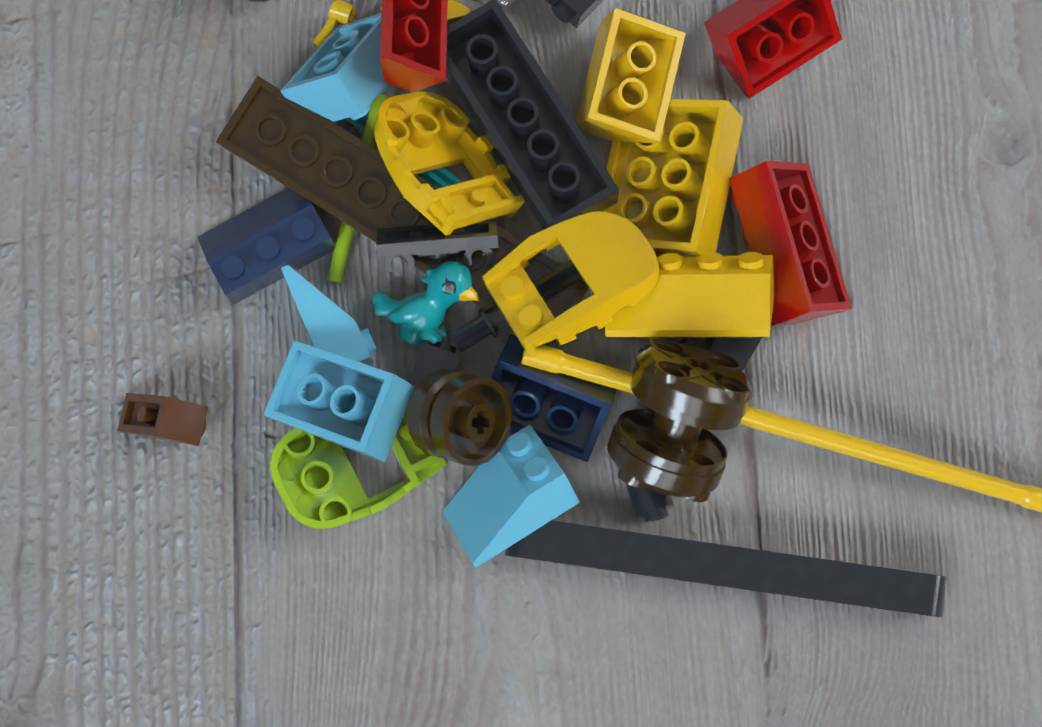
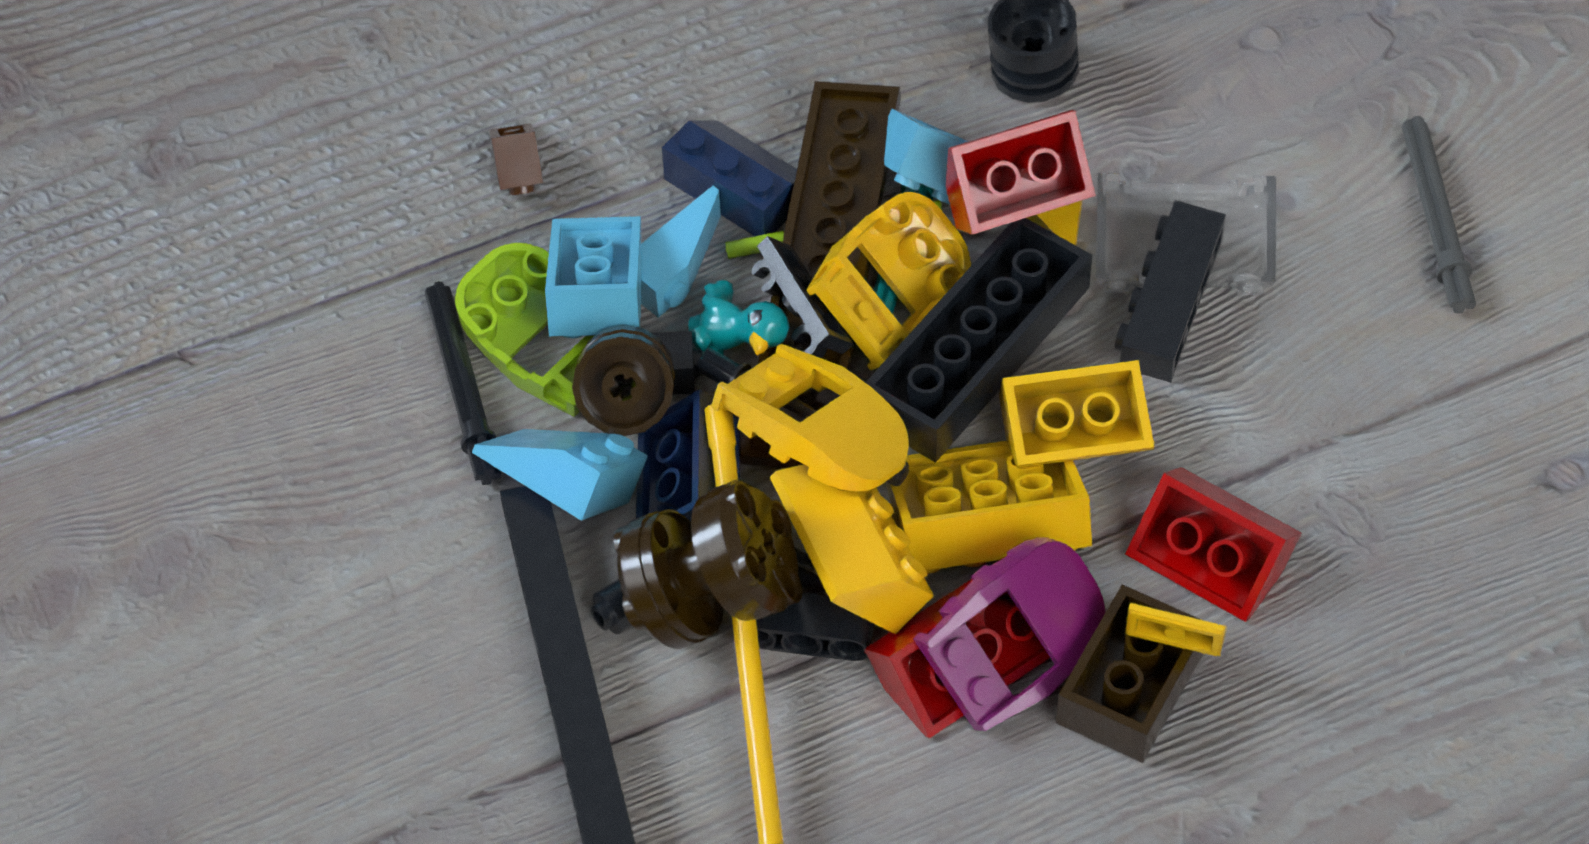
camera: 70 degrees right, 25 degrees down
(371, 546) = (461, 378): none -> black axle
(803, 167) = (1057, 602): none -> magenta slope
(870, 85) = (1175, 630): none -> yellow slope
(872, 137) = (1124, 682): none -> dark brown brick

